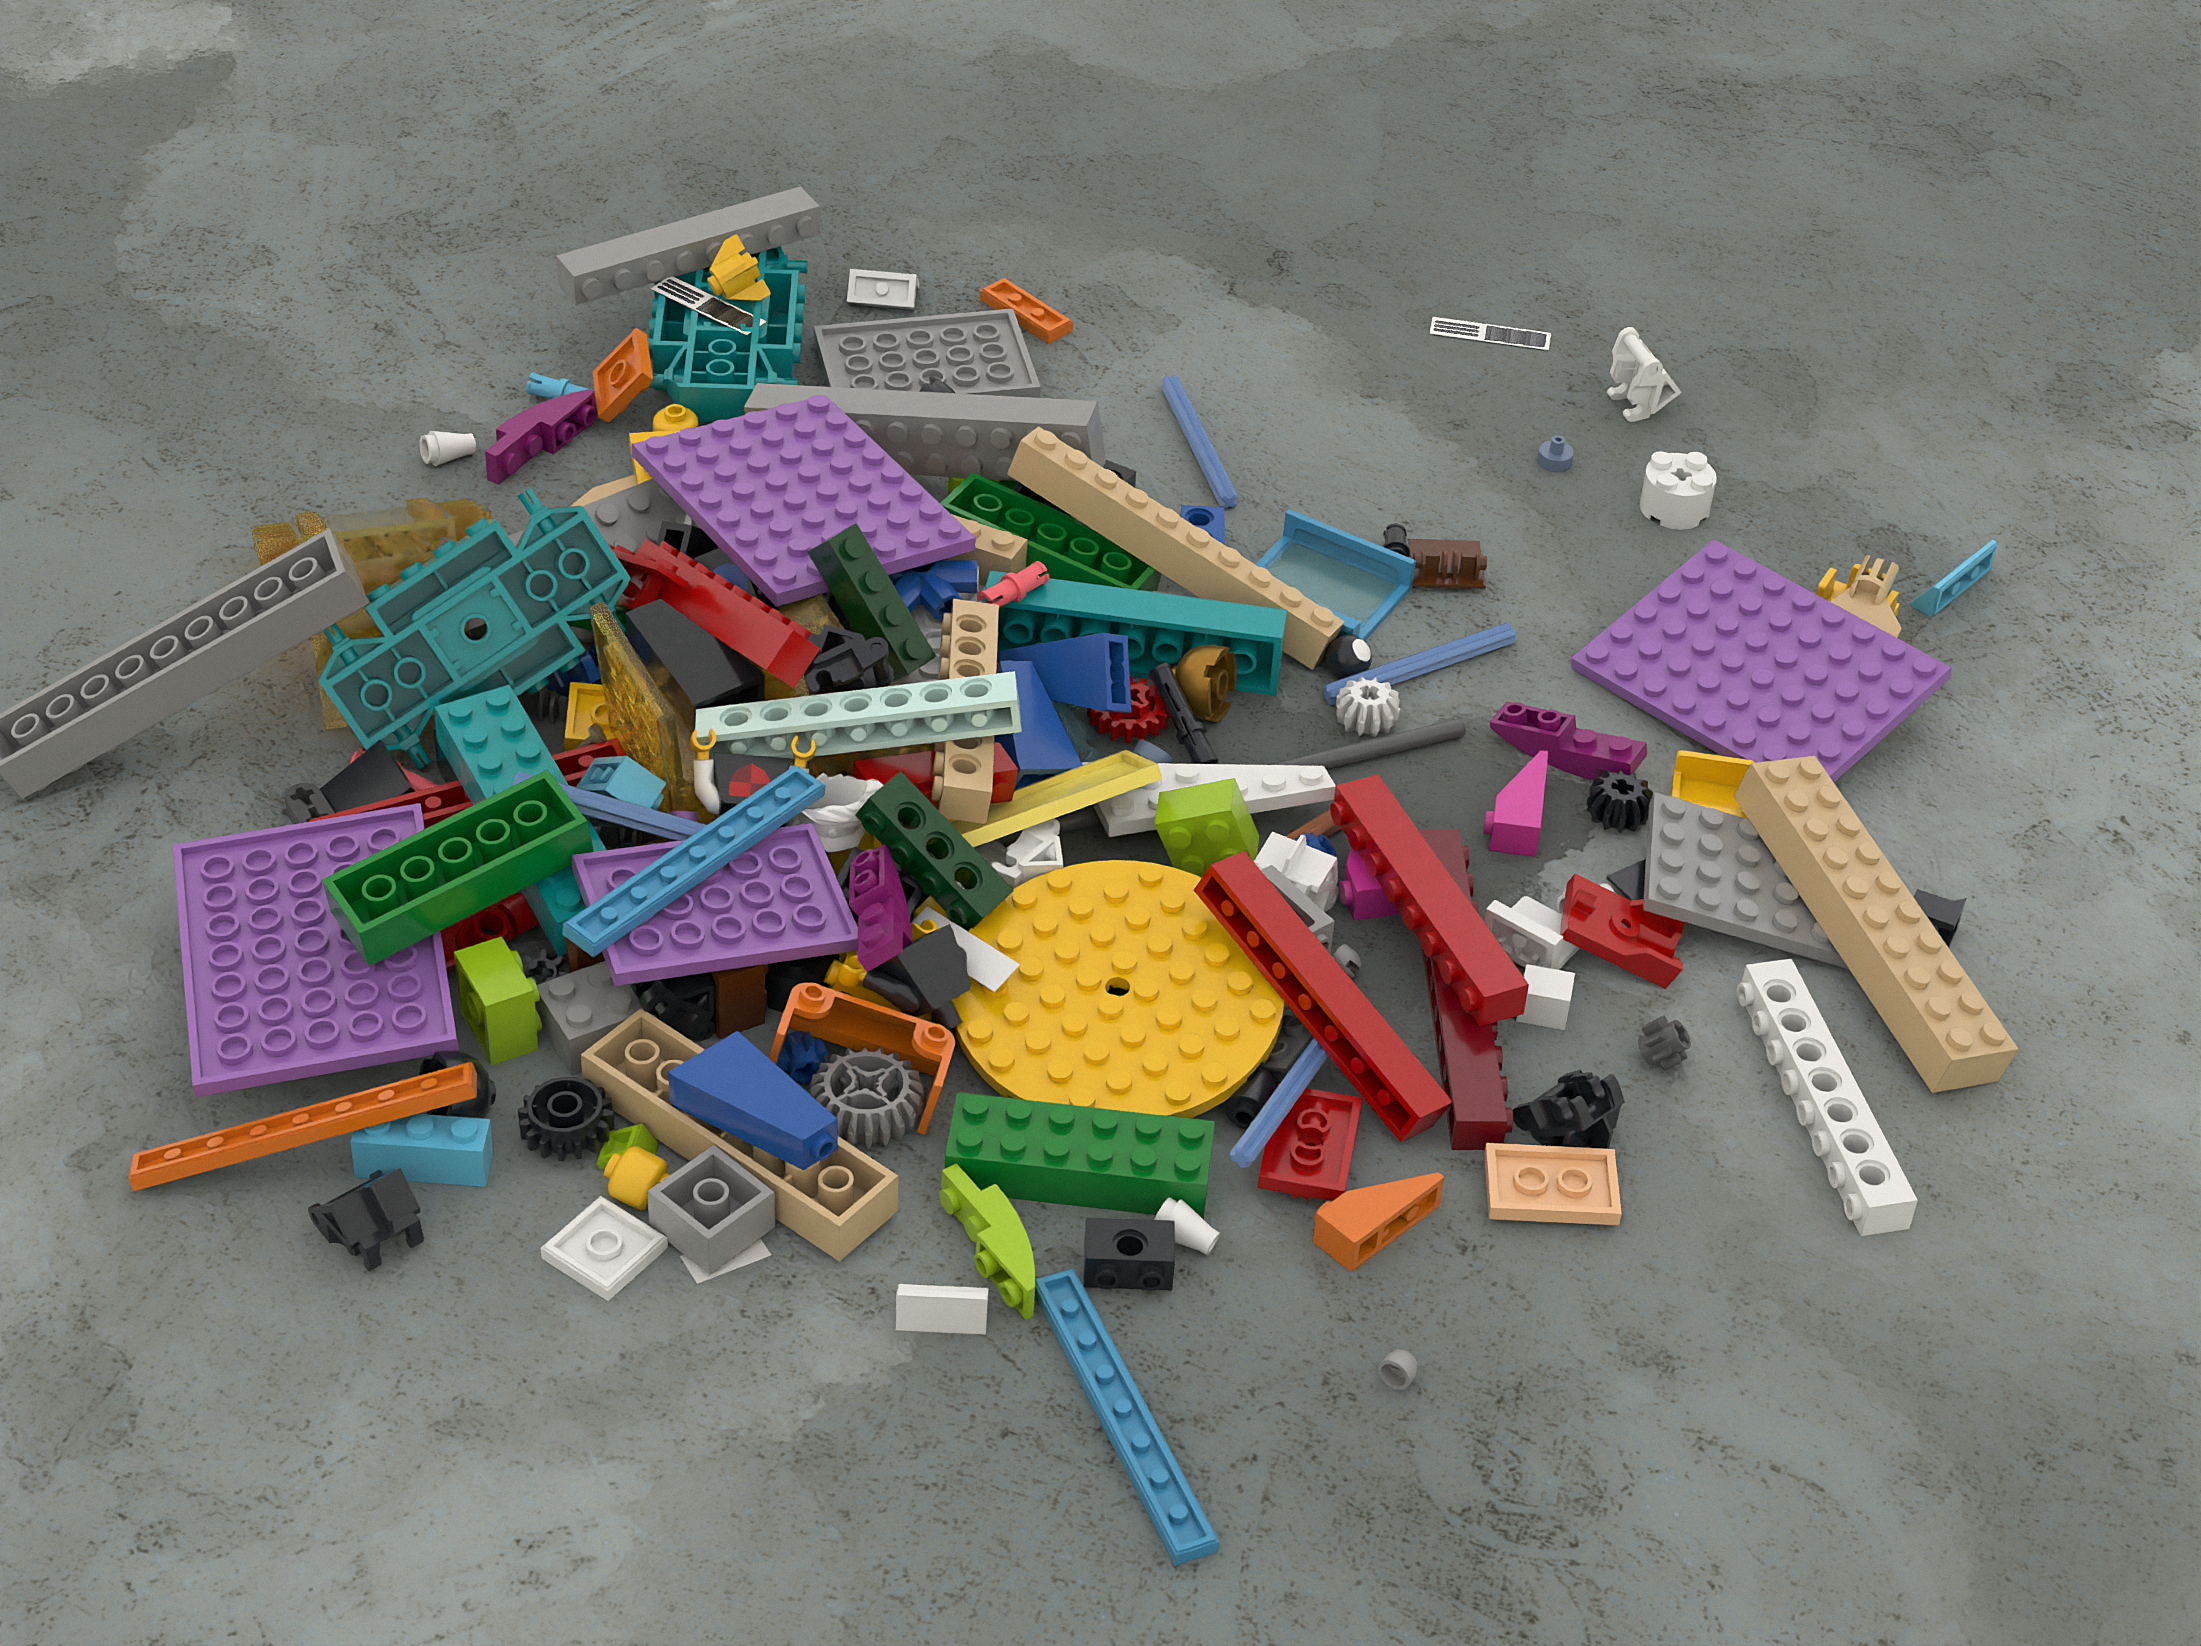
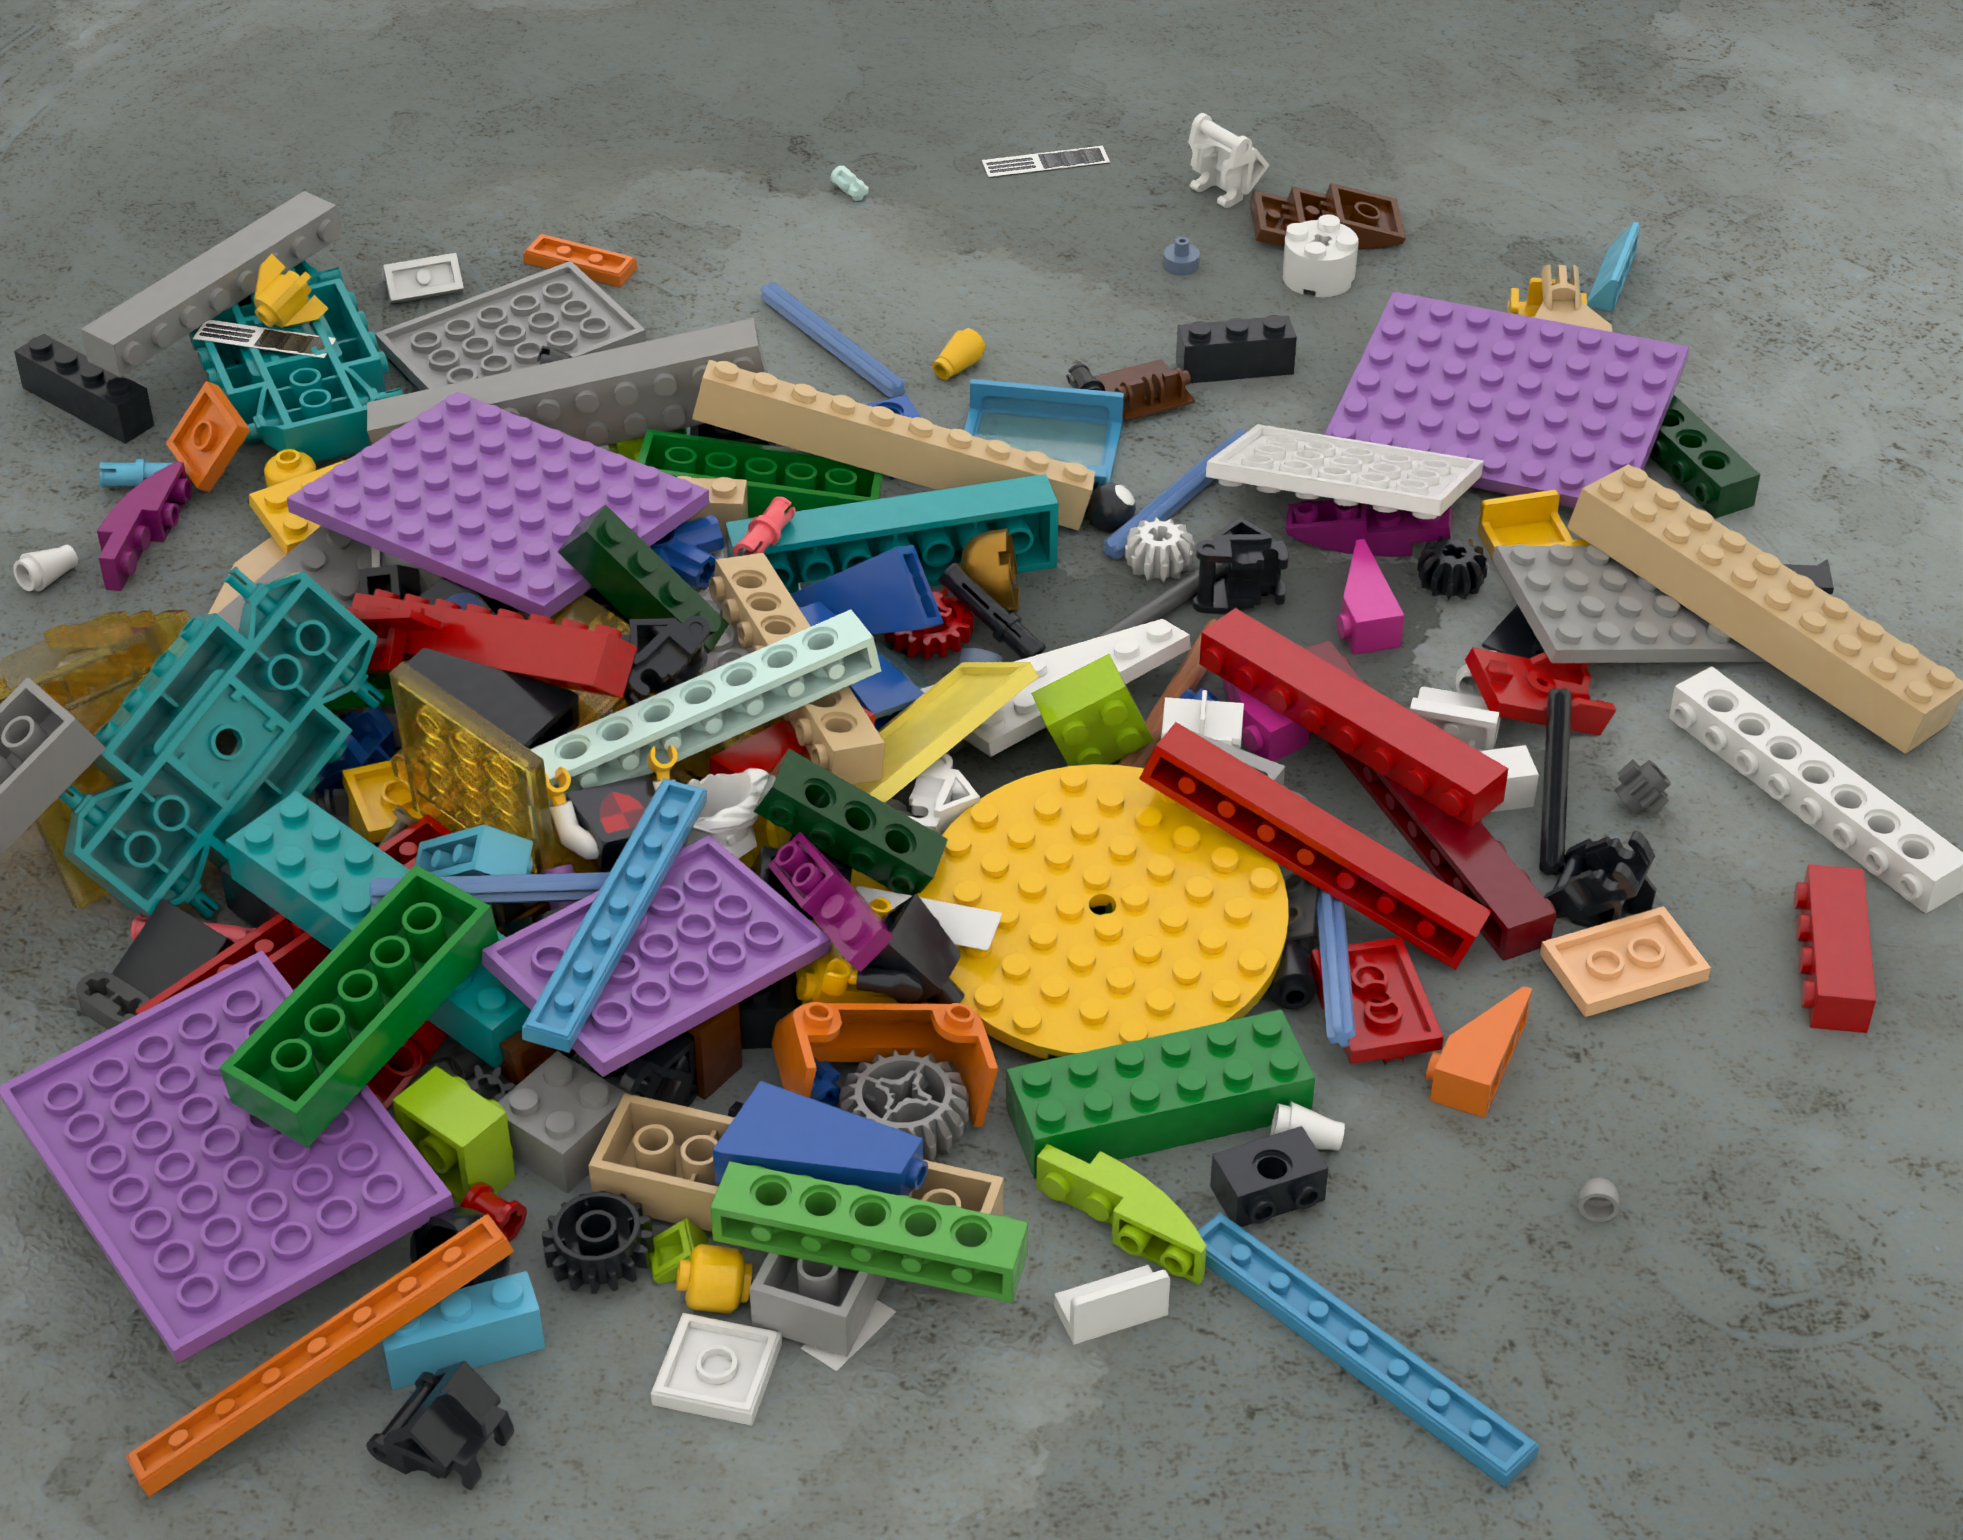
camera: 20 degrees left, 0 degrees up
(501, 1069) = (505, 1214): none -> red bush
(567, 325) = (84, 389): none -> black brick
(760, 1178) = (870, 1231): none -> bright green brick
(1298, 304) = (847, 181): none -> light aqua piece
(1299, 485) = (960, 352): none -> yellow cone
(1433, 740) = (1251, 568): none -> black piece
(1547, 551) = (1236, 348): none -> black brick
(1568, 686) = (1345, 470): none -> white plate
(1586, 1011) = (1555, 781): none -> black axle
(1739, 460) = (1370, 215): none -> reddish brown slope
(1747, 1236) = (1835, 948): none -> brick
(1915, 777) = (1704, 463): none -> dark green brick

